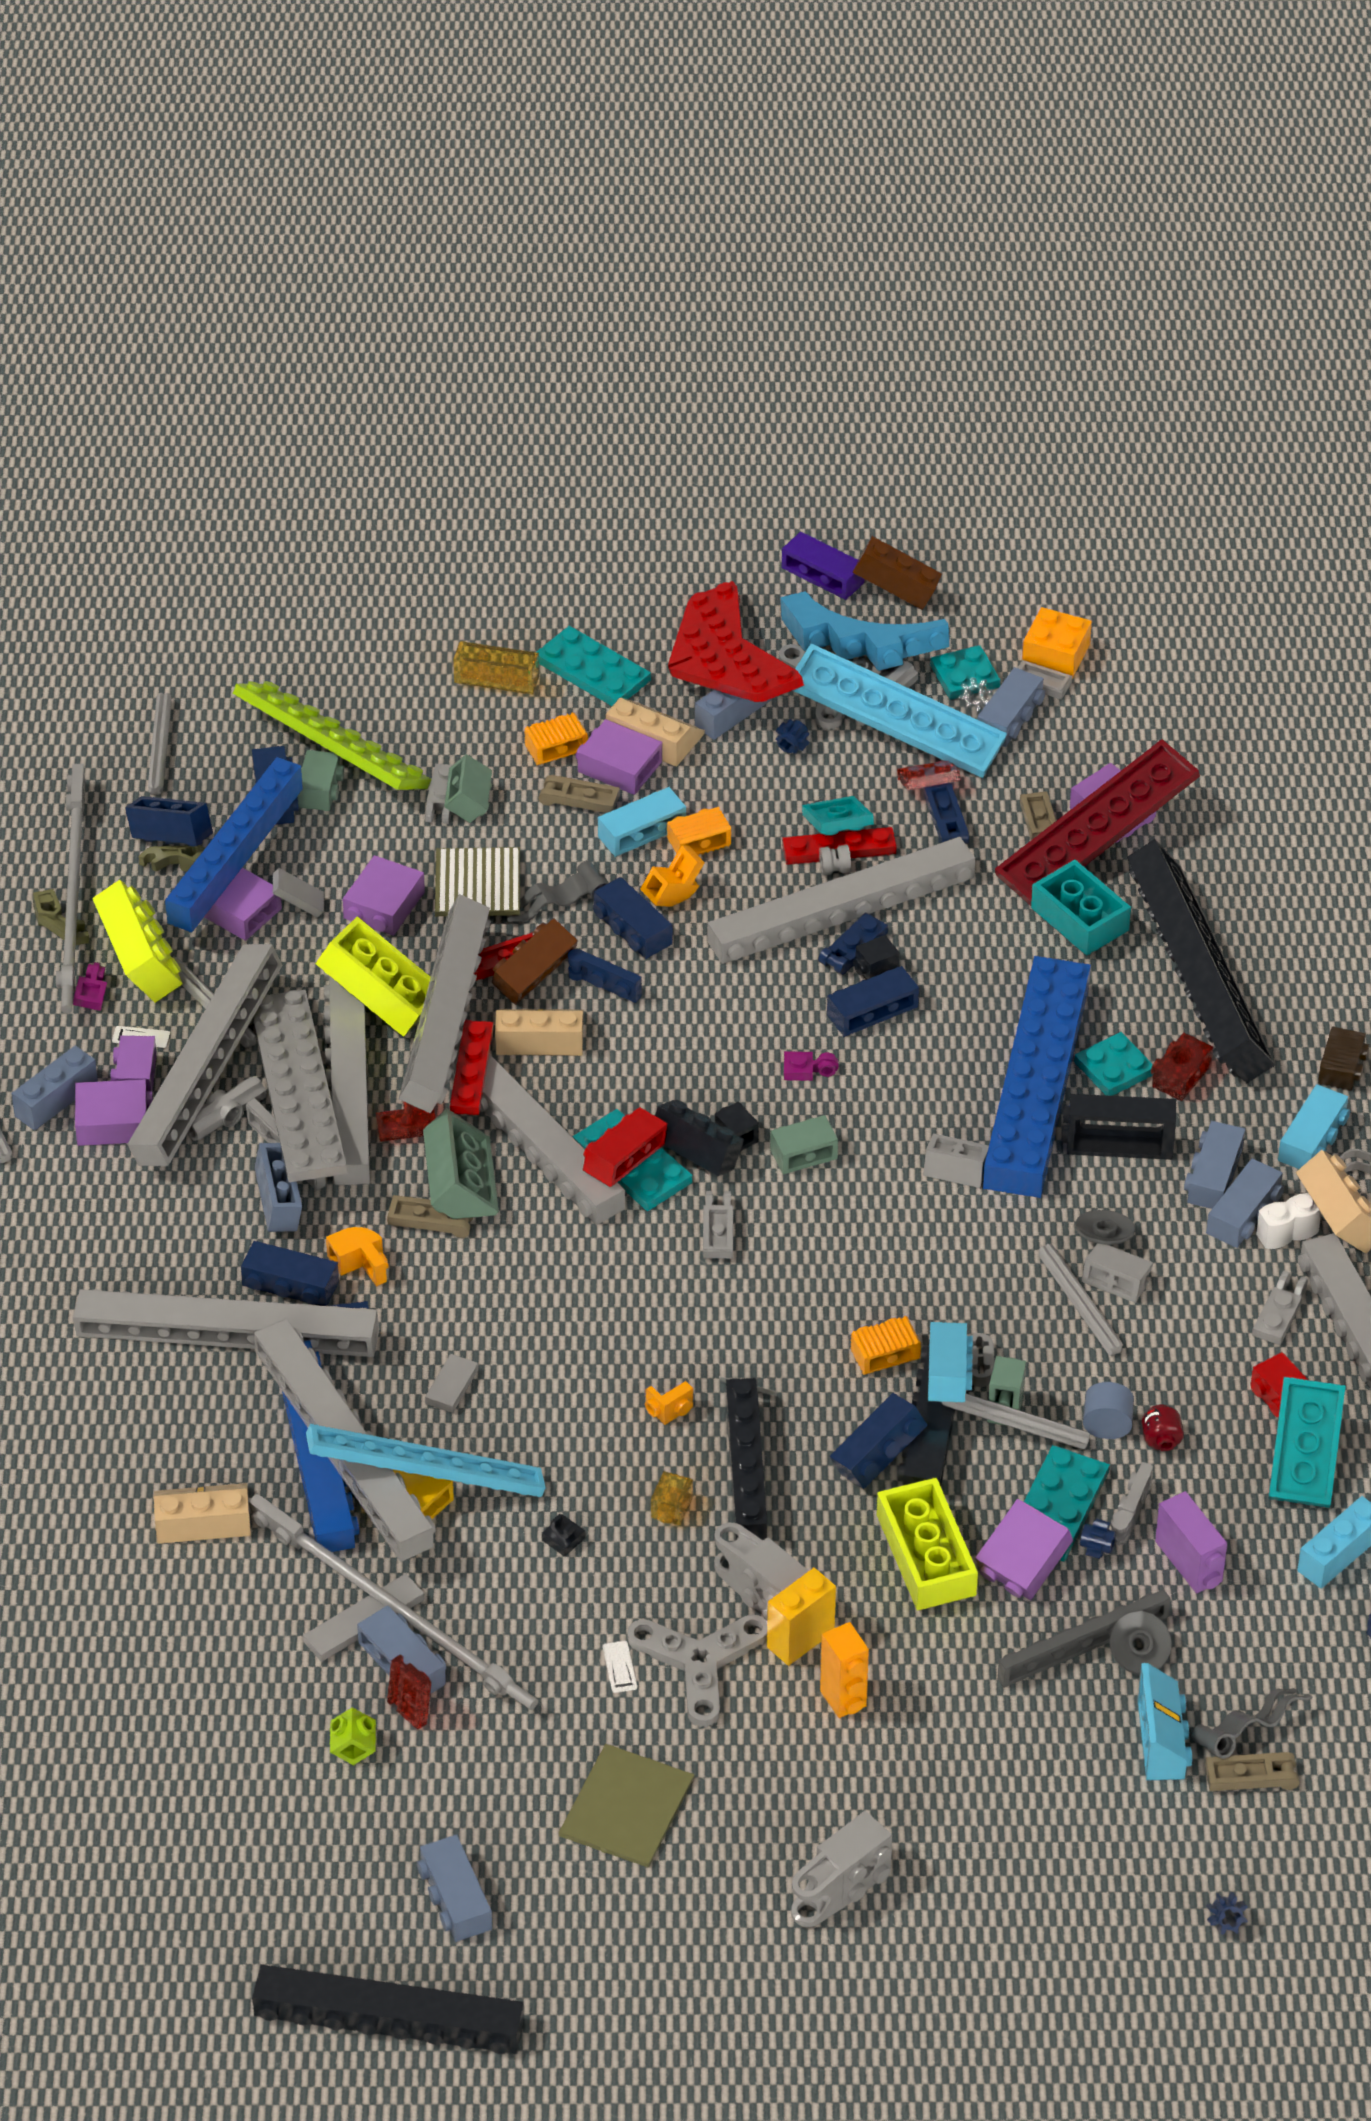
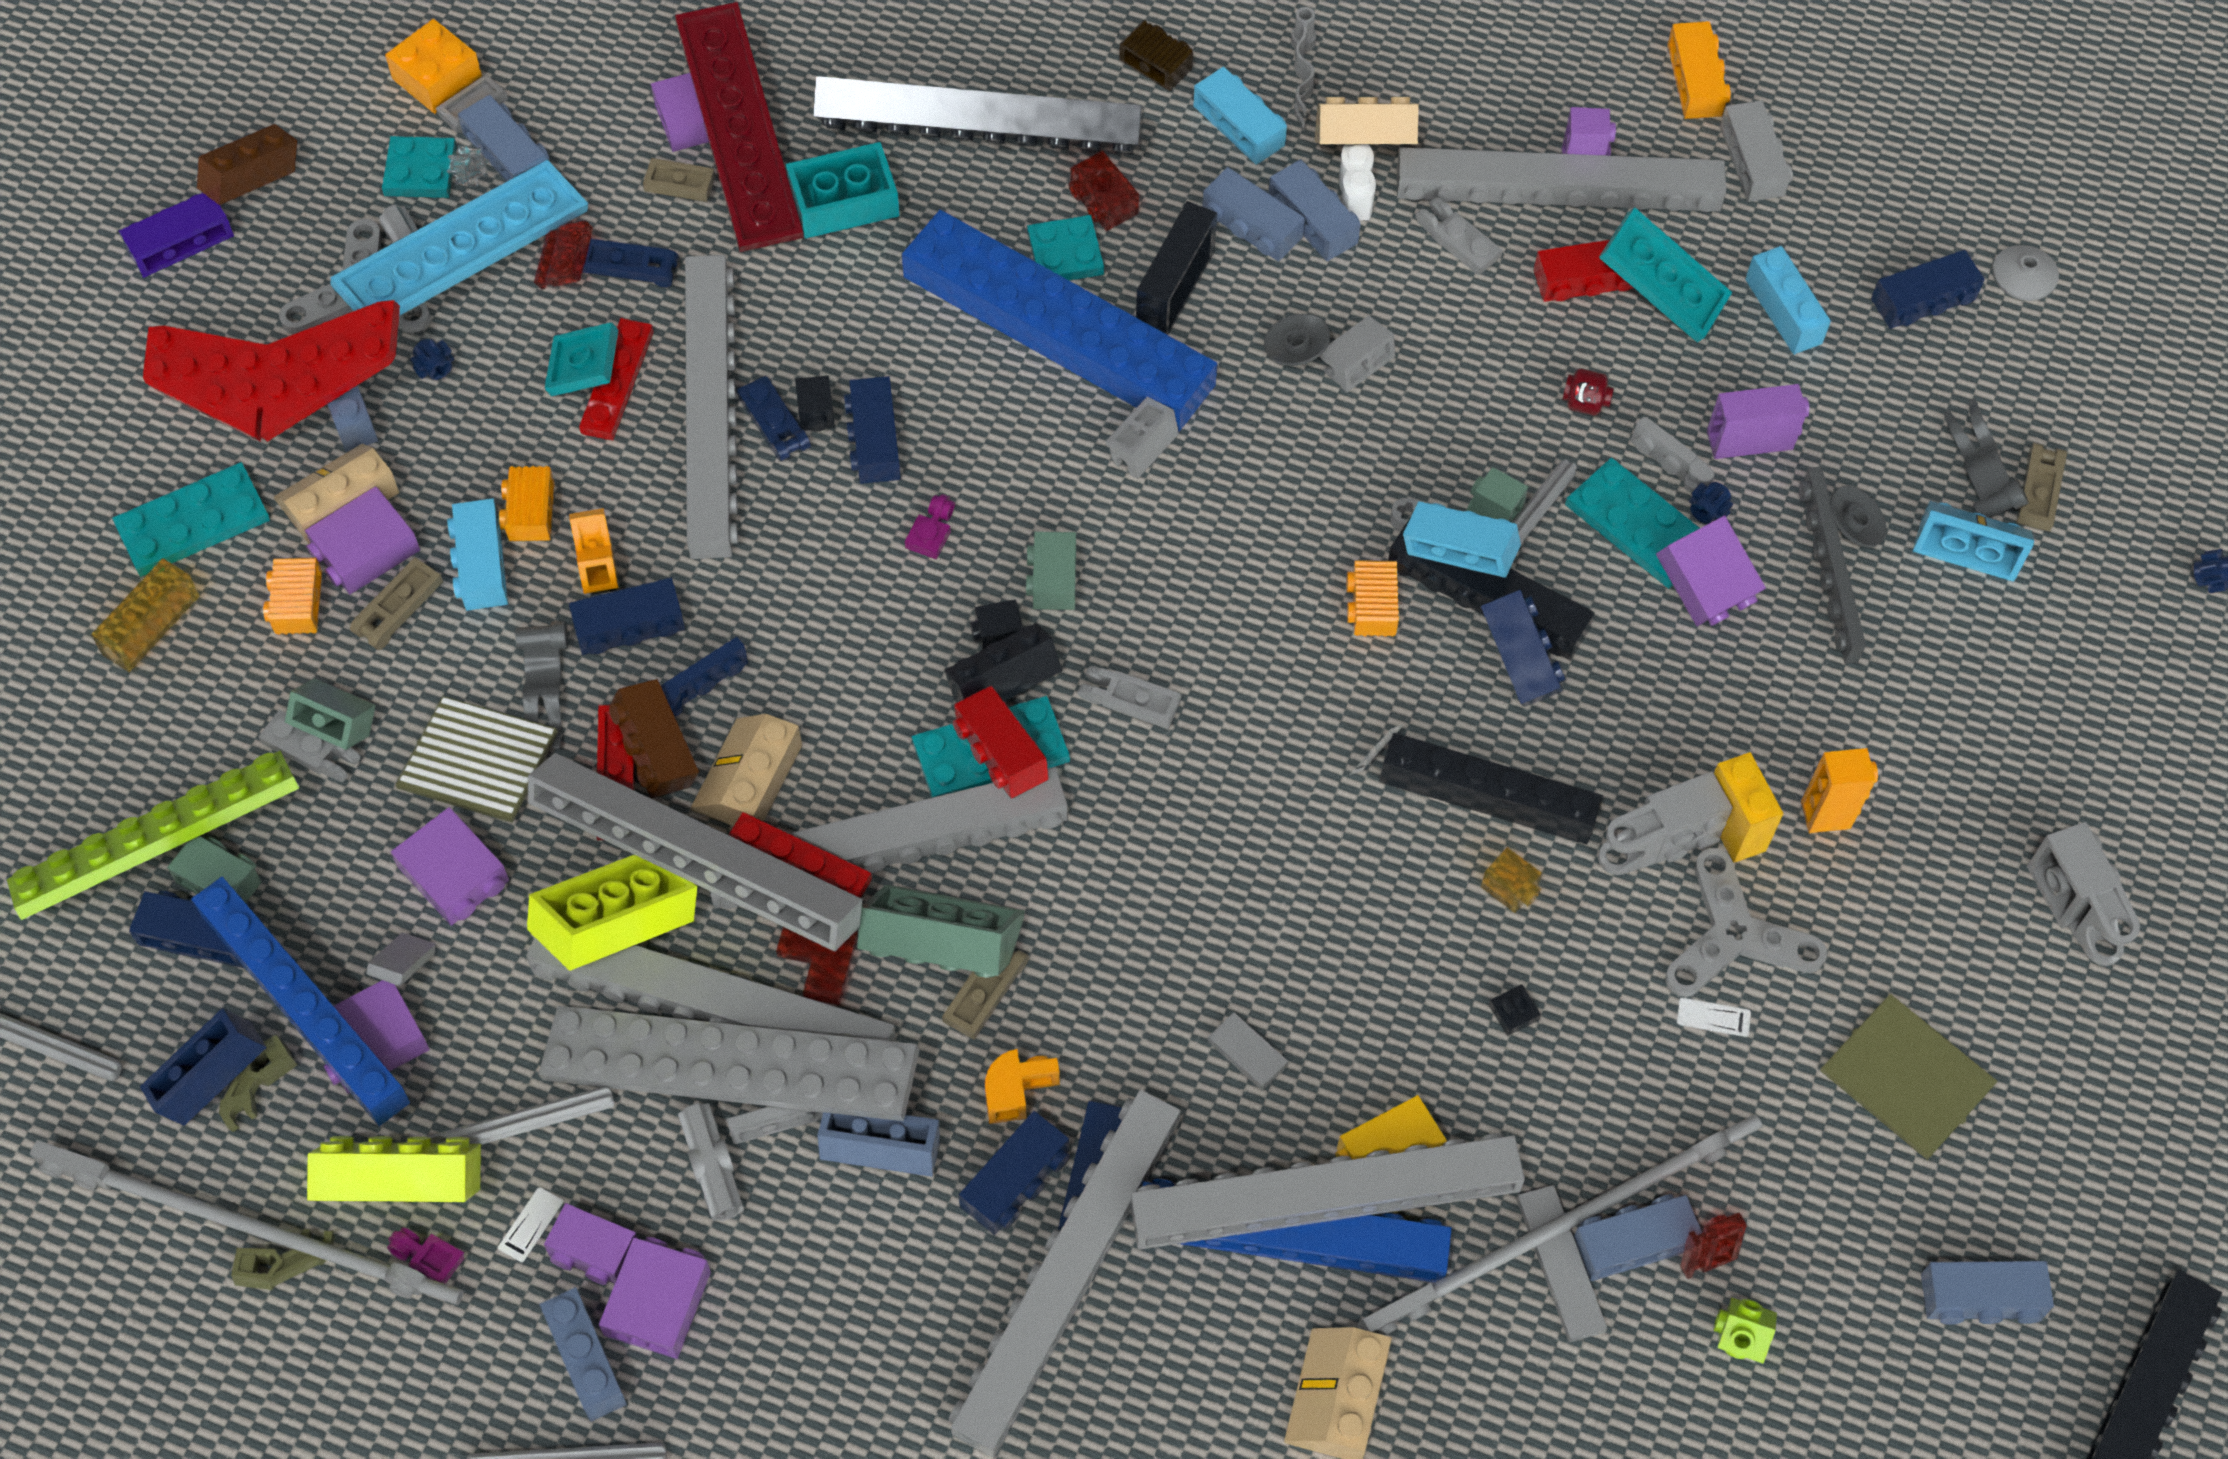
camera: 70 degrees left, 15 degrees up
(204, 1055) = (633, 1153): light grey brick -> none
(425, 1460) = (1406, 1114): medium azure plate -> none
(671, 1404) = (1378, 830): light orange bracket -> none
(835, 860) = (644, 387): light grey wheel -> none
(853, 638) = (320, 246): dark azure arch -> none
(927, 1544) = (1670, 656): neon yellow brick -> none
(1080, 1299) = (1376, 400): light grey axle -> none
(1108, 1410) = (1550, 428): sand blue piece -> none

